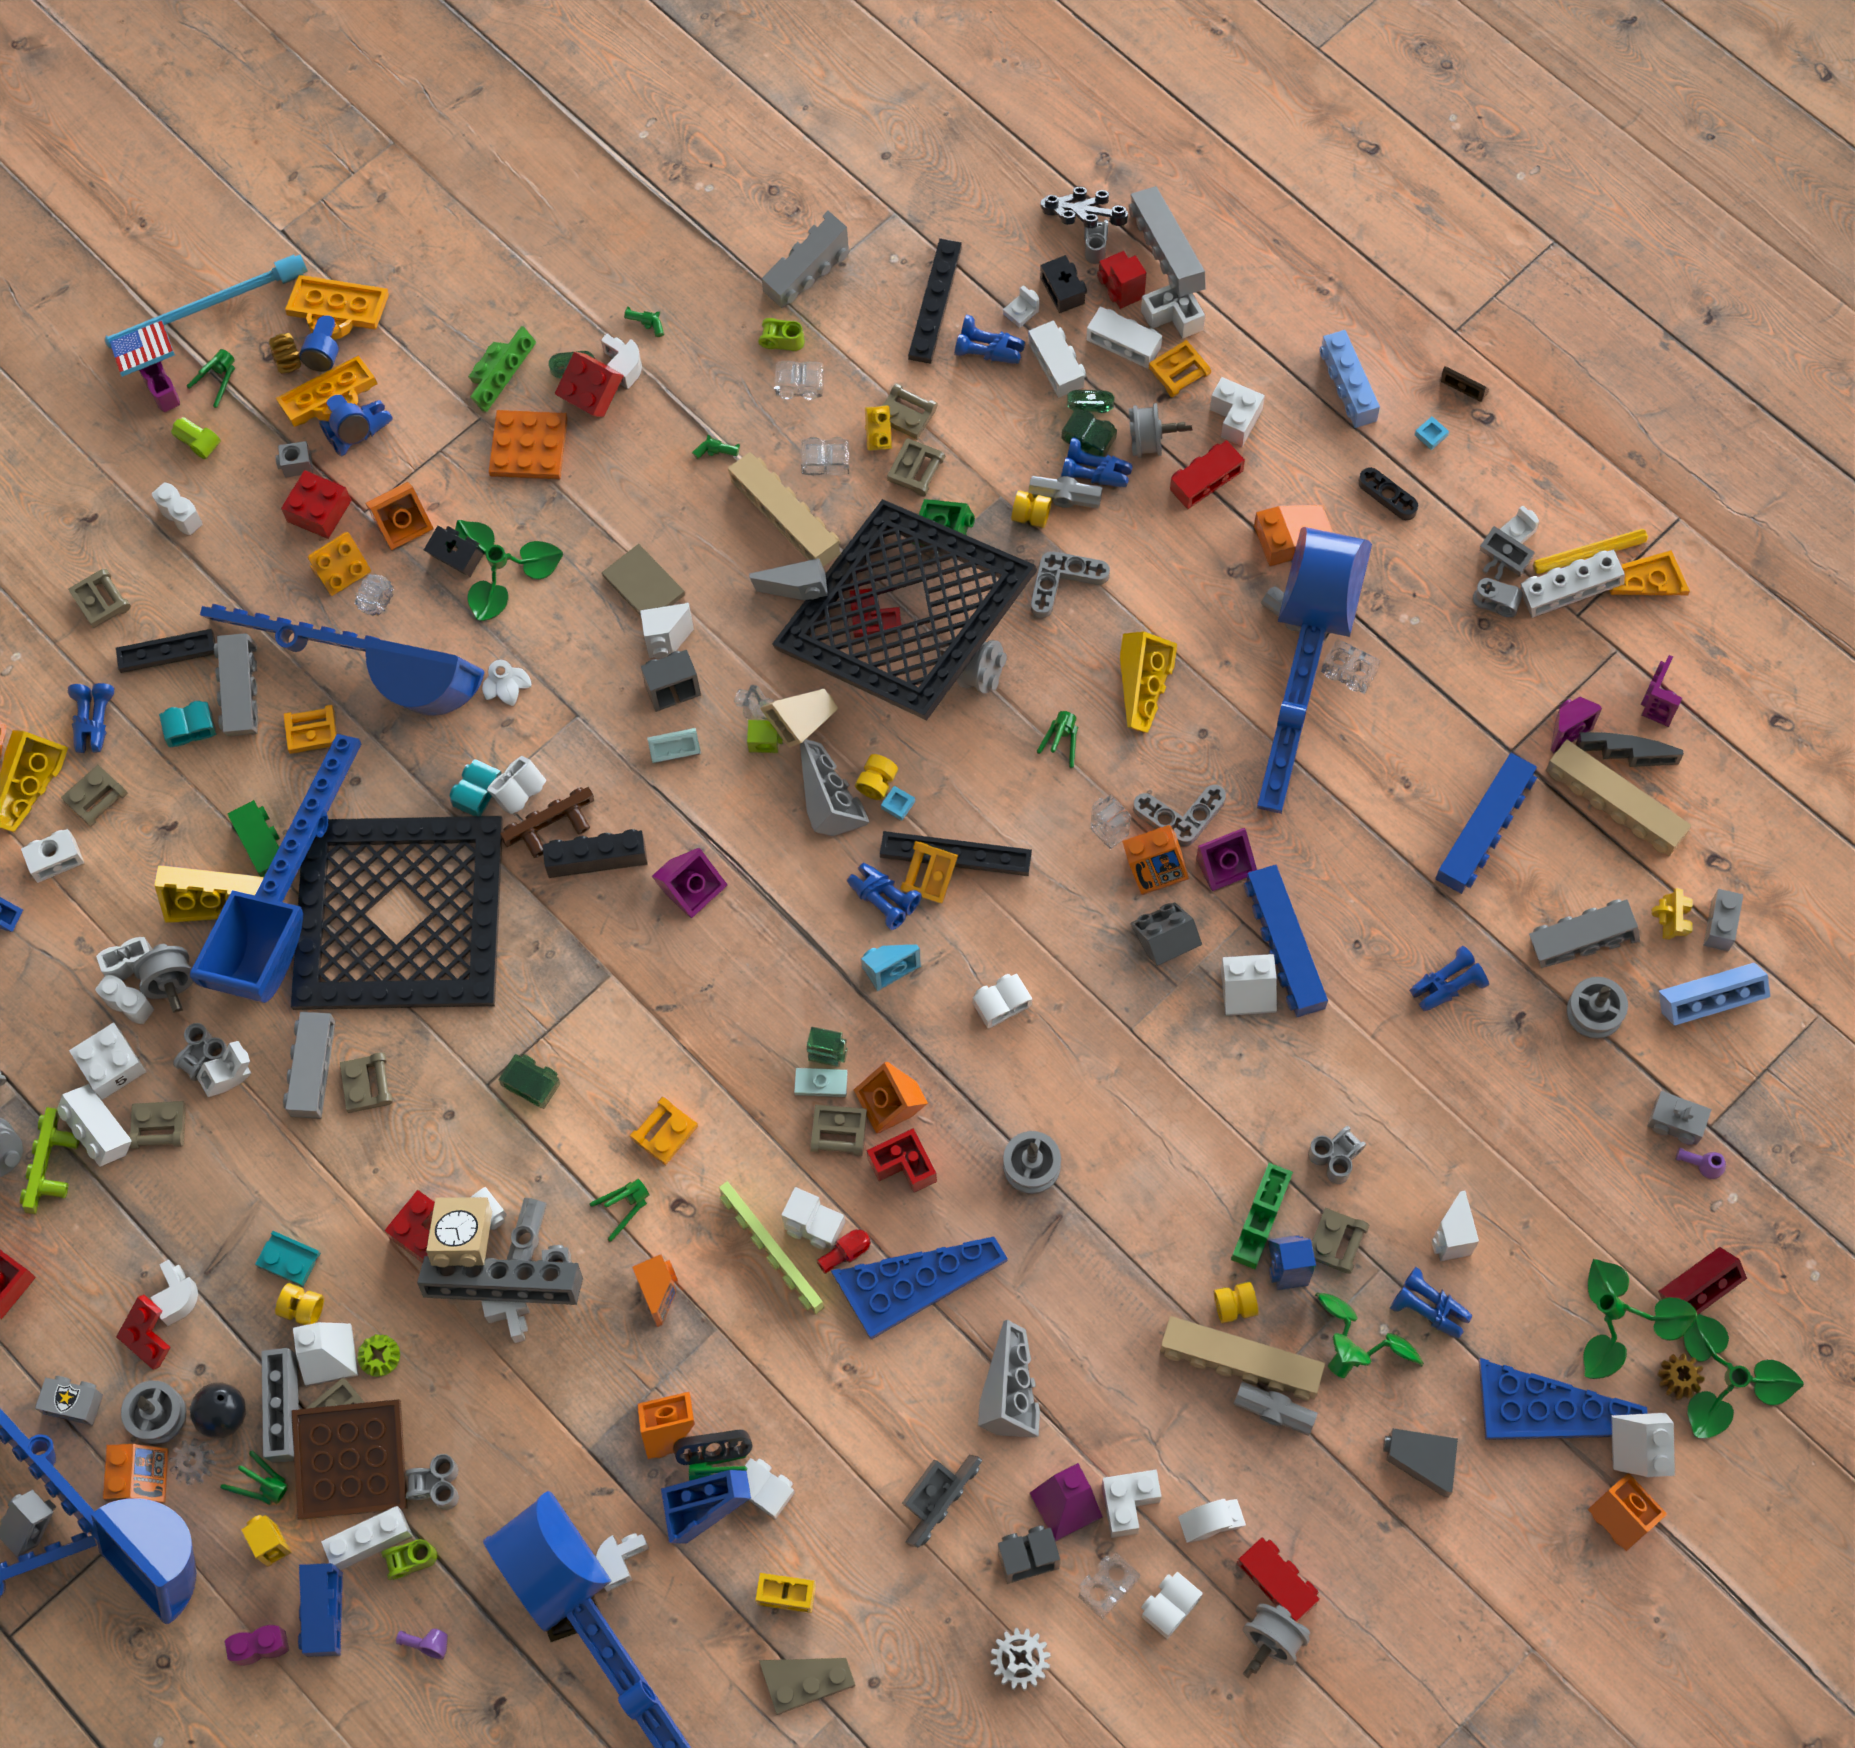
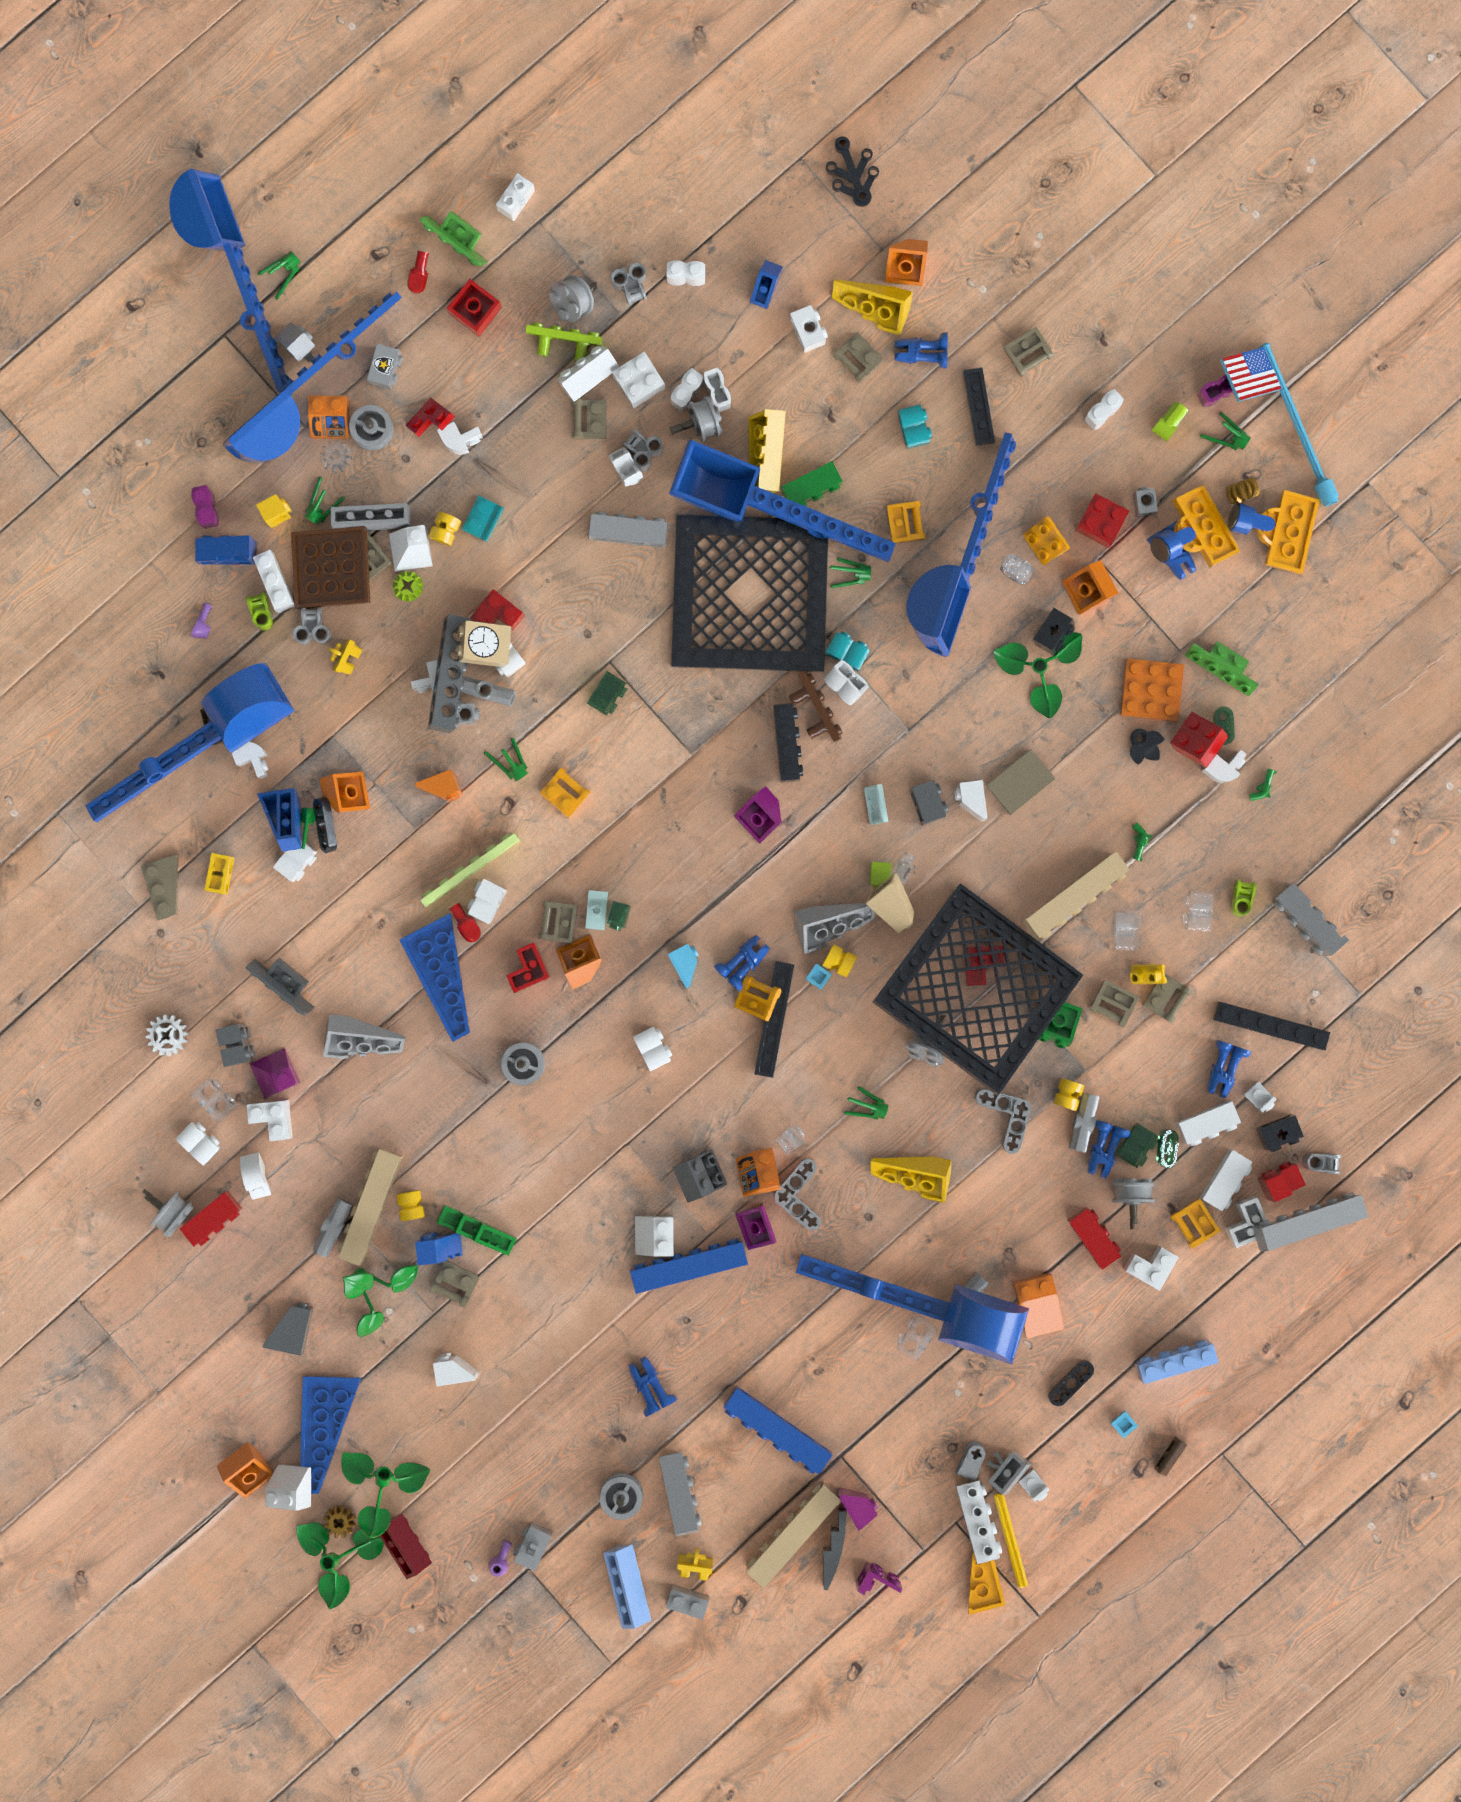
camera: 90 degrees right, 20 degrees up
(217, 1410) = (369, 473): black piece -> none
(237, 684) = (943, 463): light grey wedge -> none
(357, 1083) = (611, 566): dark tan plate -> none
(373, 778) = (861, 571): none -> green plant
(474, 1437) = (348, 649): none -> yellow hips
(505, 685) = (935, 674): white plate -> none
(598, 446) = (1147, 748): none -> black plate
(796, 581) = (1011, 907): light grey slope -> none
(1084, 209) = (1352, 1152): black plant -> none
(1340, 1152) = (520, 1290): light grey piece -> none
(1444, 1304) = (402, 1355): blue piece -> none

